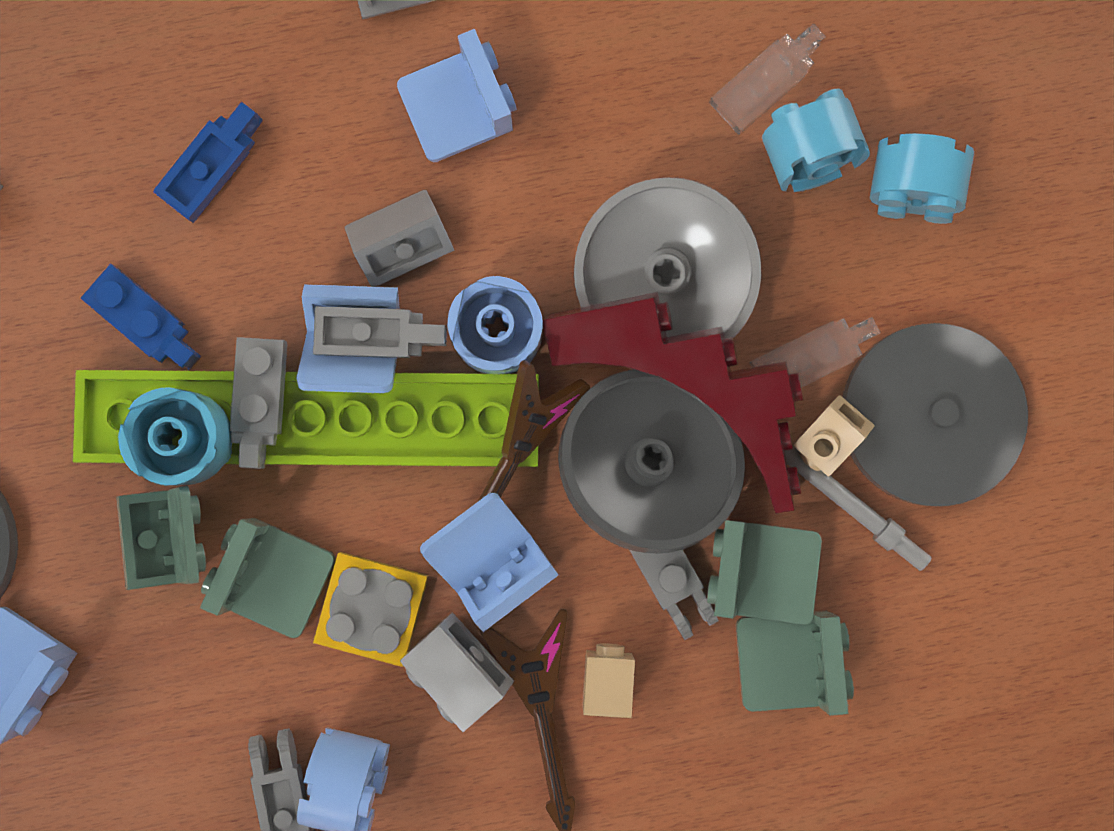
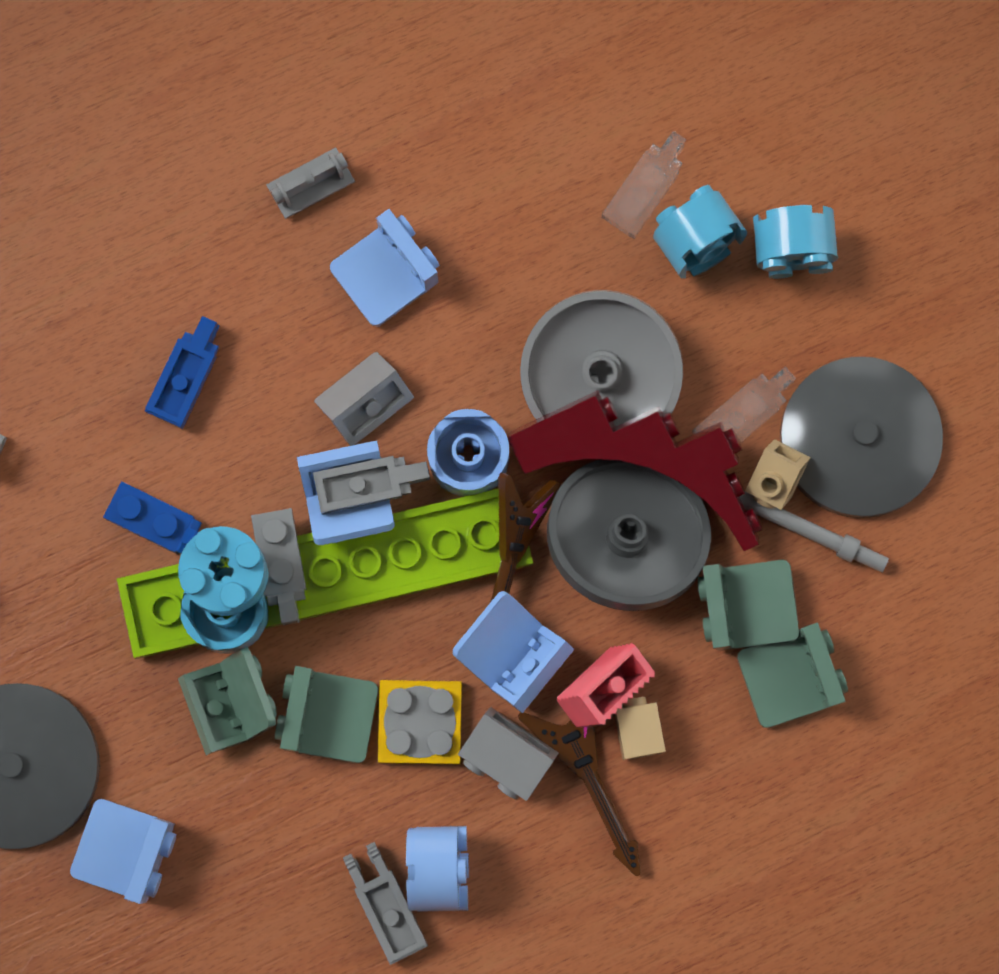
camera: 10 degrees left, 5 degrees down
(142, 399) = (212, 549): none -> medium azure brick
(583, 626) = (605, 686): none -> coral brick
(672, 580) = (673, 632): light grey hinge -> none

